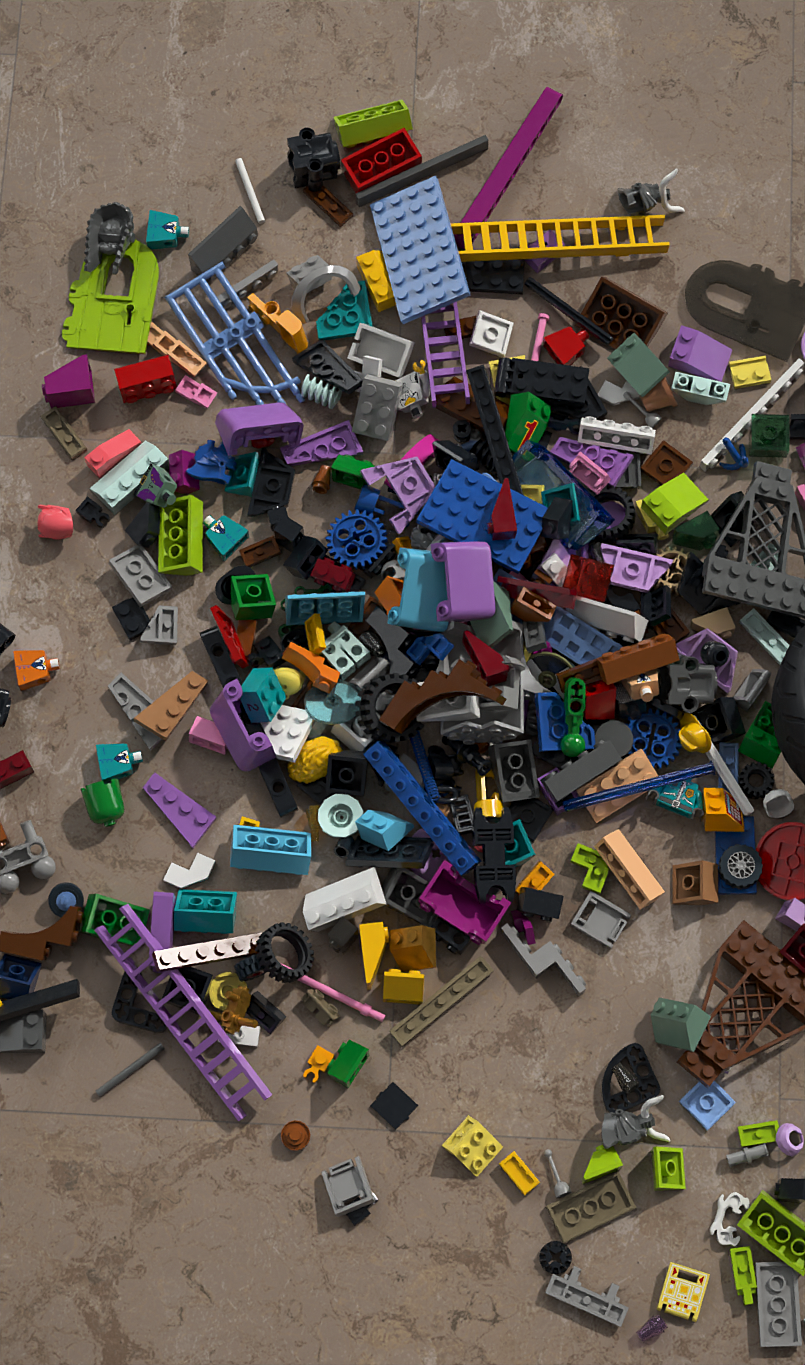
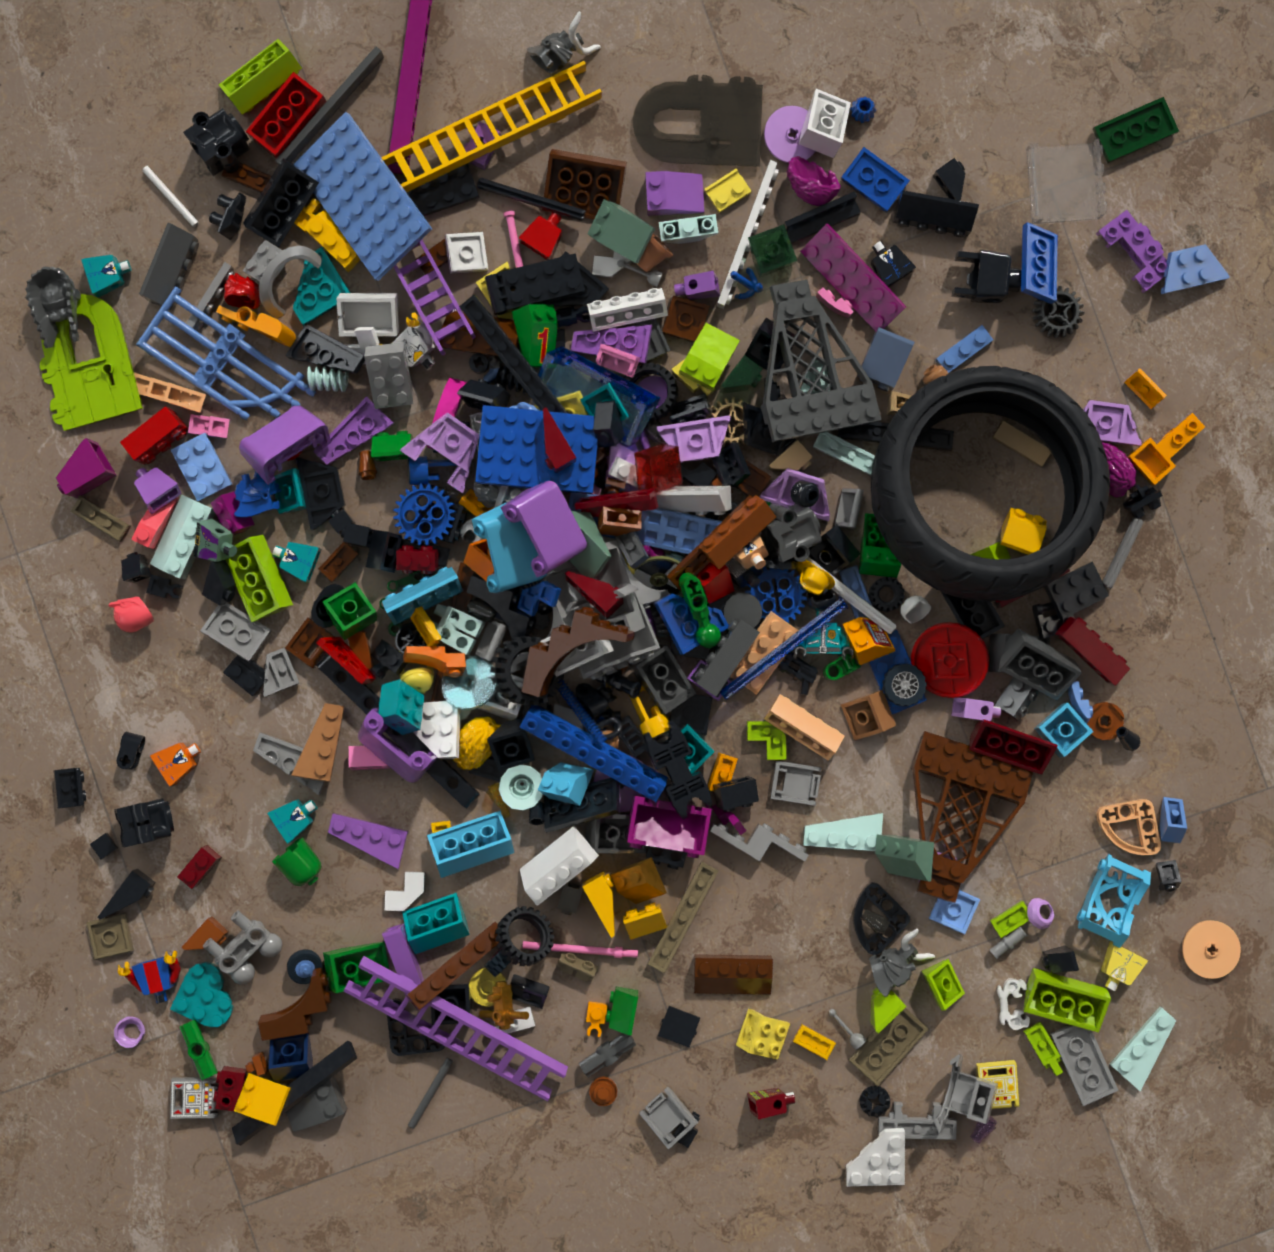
camera: 25 degrees left, 15 degrees up
(75, 485) = (135, 568): none -> black slope
(126, 424) = (156, 488): none -> medium lavender torso
(174, 423) = (201, 466): none -> light blue plate
(197, 608) = (304, 640): none -> reddish brown plate
(277, 289) = (241, 292): none -> red hair
(295, 228) = (231, 220): none -> black connector
(314, 1101) = (607, 1054): none -> dark grey piece
(345, 229) = (280, 202): none -> black slope
(361, 248) = (307, 214): none -> yellow plate
(444, 1210) = (769, 1102): none -> dark red torso
(466, 1075) = (733, 974): none -> reddish brown slope
(536, 1317) = (880, 1161): none -> white plate
(629, 987) = (851, 833): none -> light aqua wing
(649, 1284) = (967, 1096): none -> light grey piece
(651, 822) = (805, 673): none -> black piece
(690, 440) = (706, 287): none -> medium lavender torso
(690, 829) = (843, 667): none -> green piece
(691, 759) = (822, 601): none -> black hair

